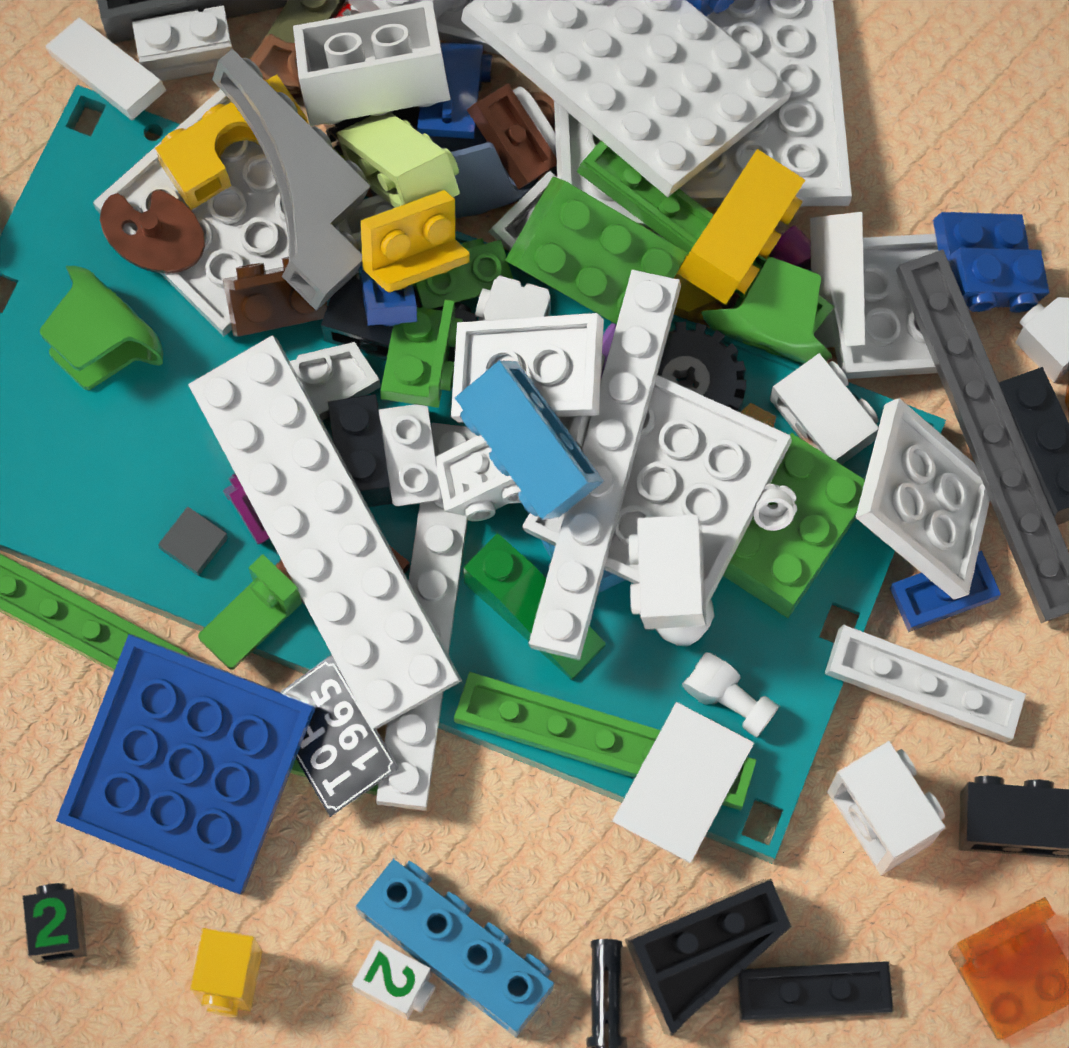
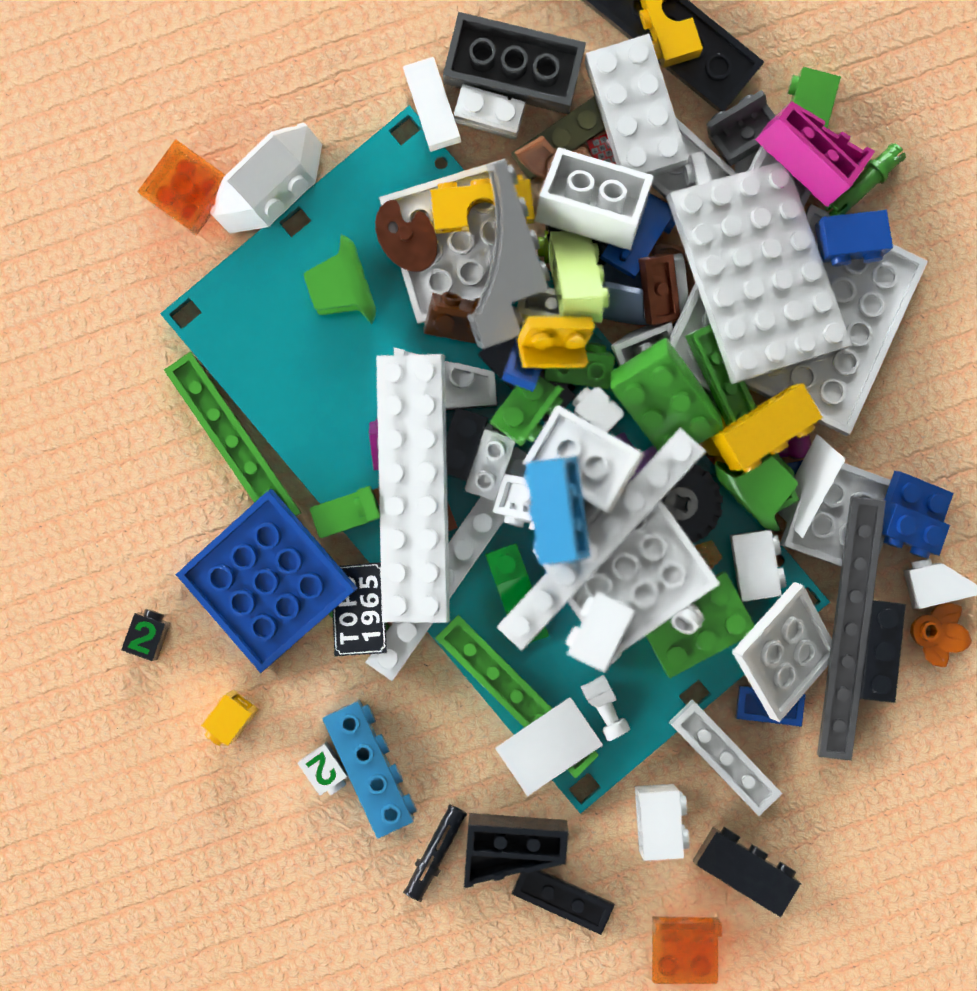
camera: 30 degrees right, 15 degrees up
(193, 541) = (336, 446): dark grey tile -> none

